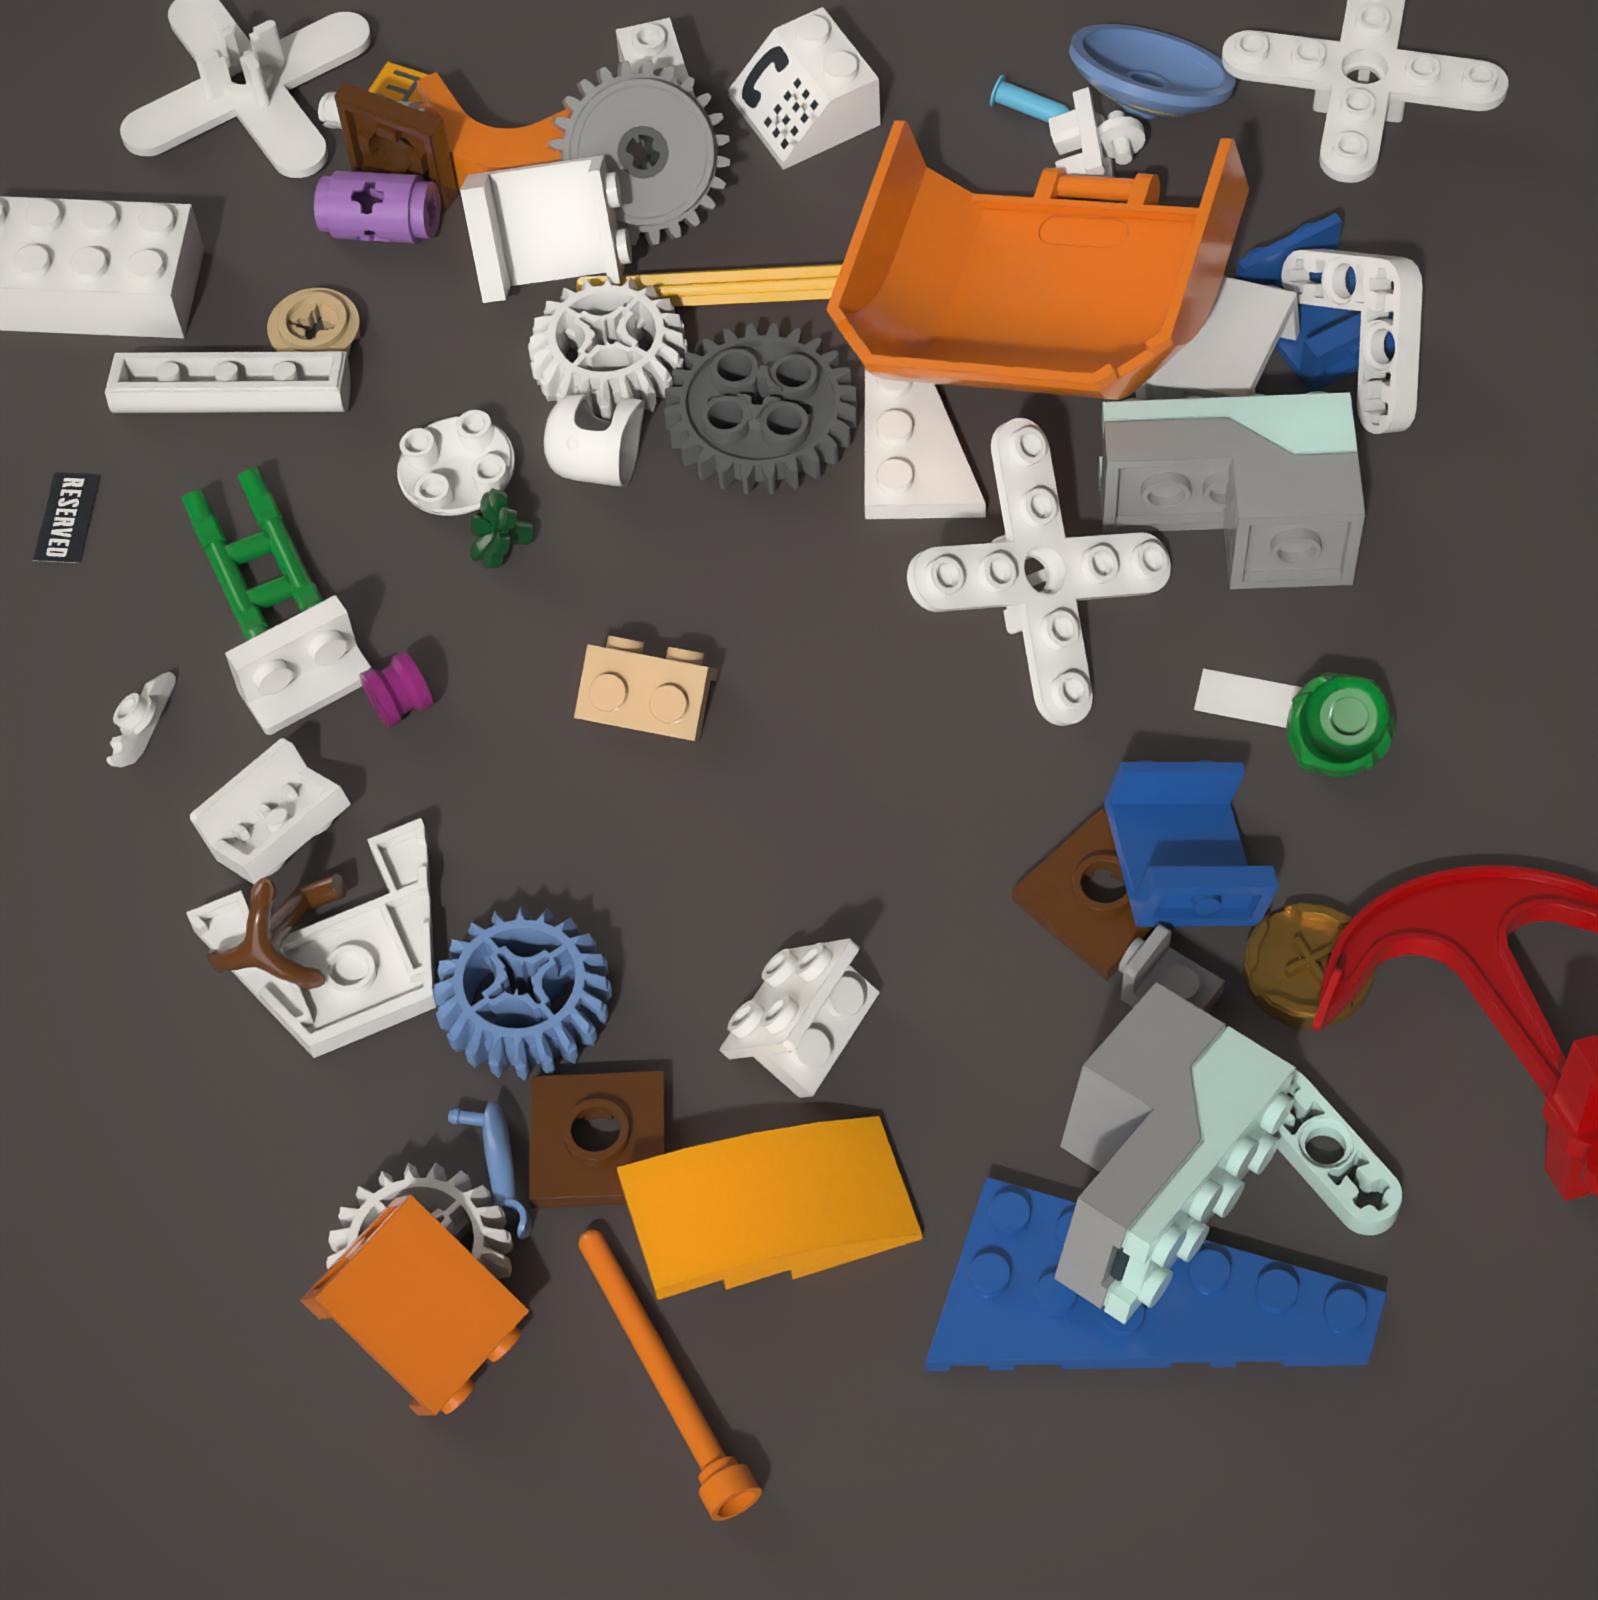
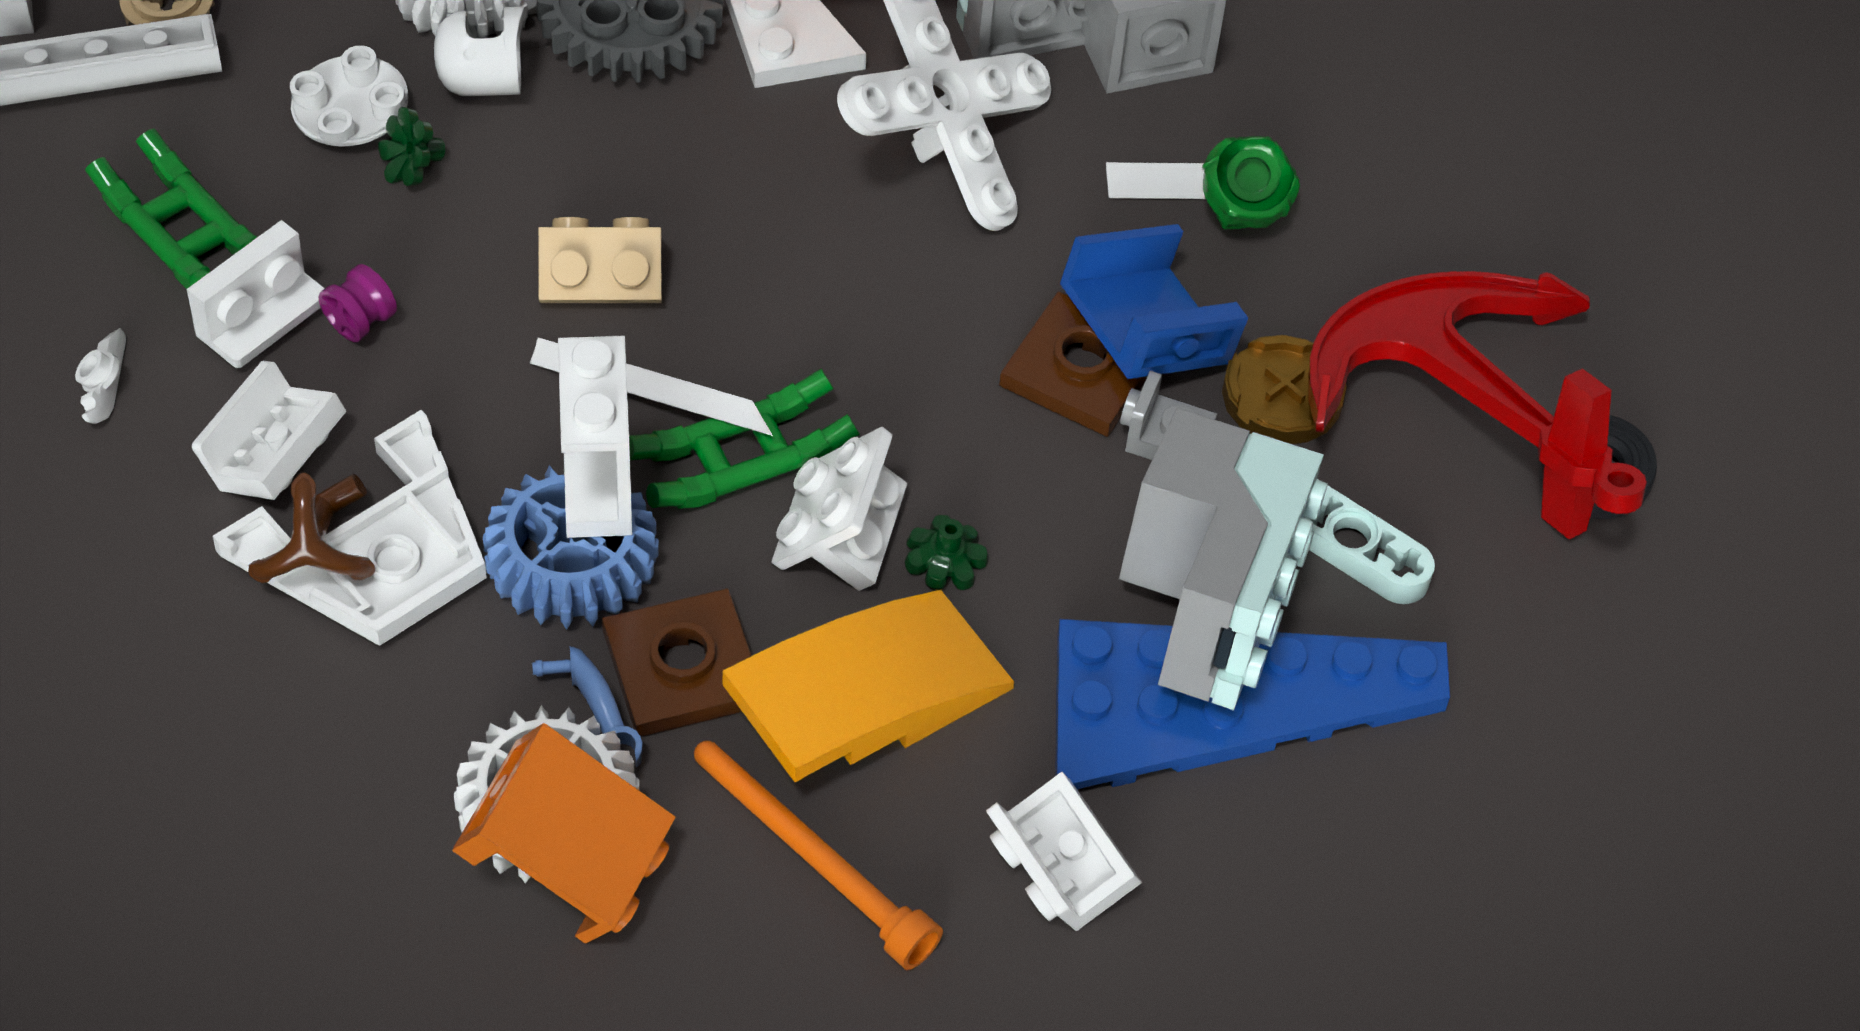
camera: 25 degrees left, 5 degrees down
(555, 892) = (595, 436): none -> white panel
(655, 832) = (672, 392): none -> white sticker
(690, 902) = (720, 475): none -> green piece
(897, 1077) = (946, 552): none -> dark green plant
(905, 1436) = (1064, 852): none -> white bracket

